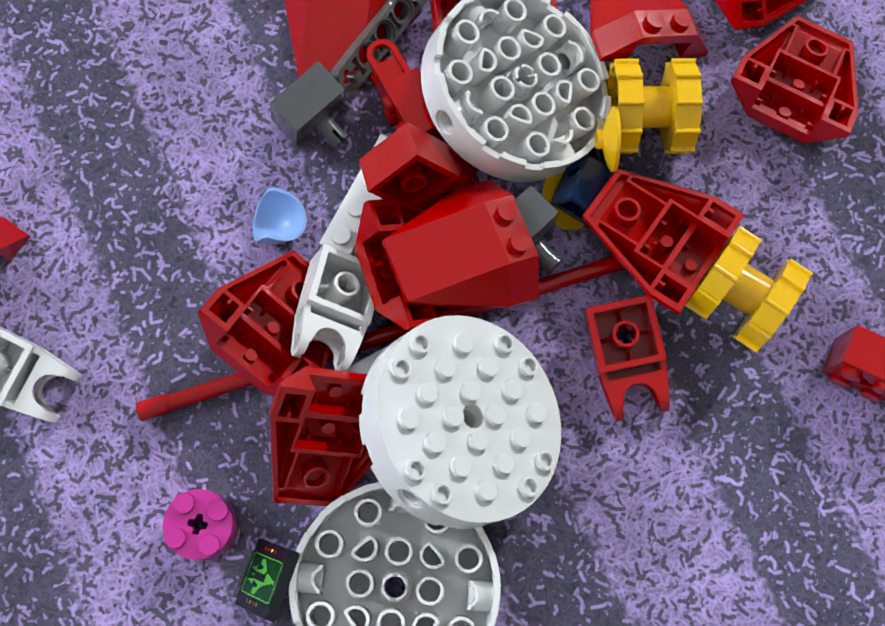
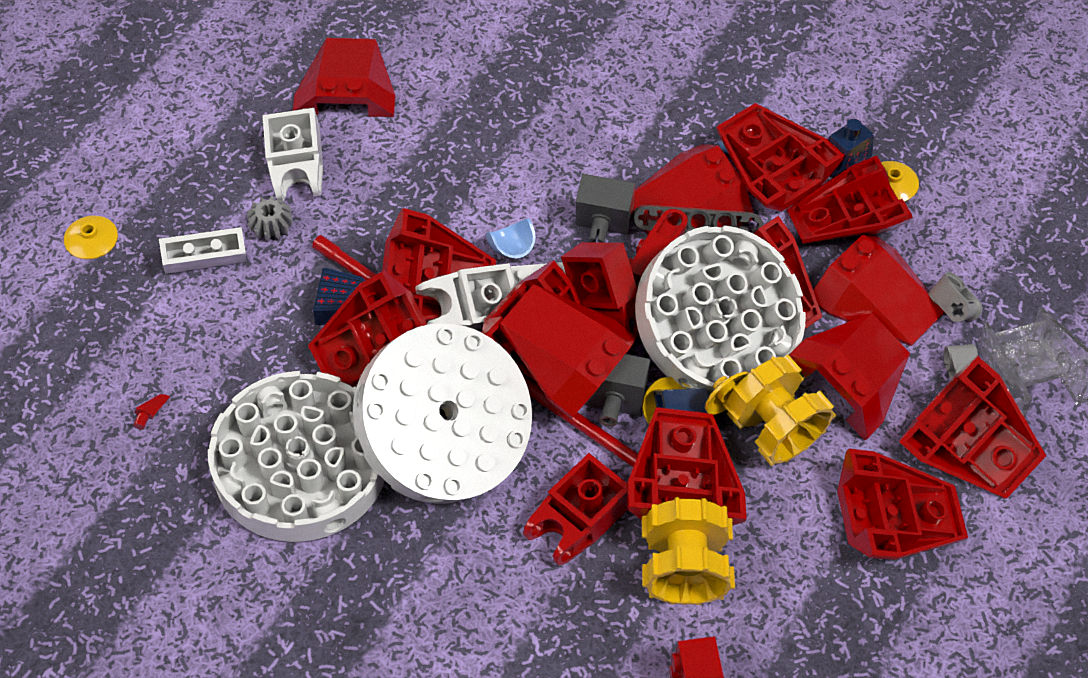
camera: 55 degrees right, 20 degrees down
(64, 436) = (269, 218): none -> light grey gear
(71, 543) = (202, 250): none -> white brick
(194, 506) = (263, 316): dark pink brick -> none
(232, 429) = (332, 293): none -> dark blue torso
(267, 579) = (252, 373): black tile -> none

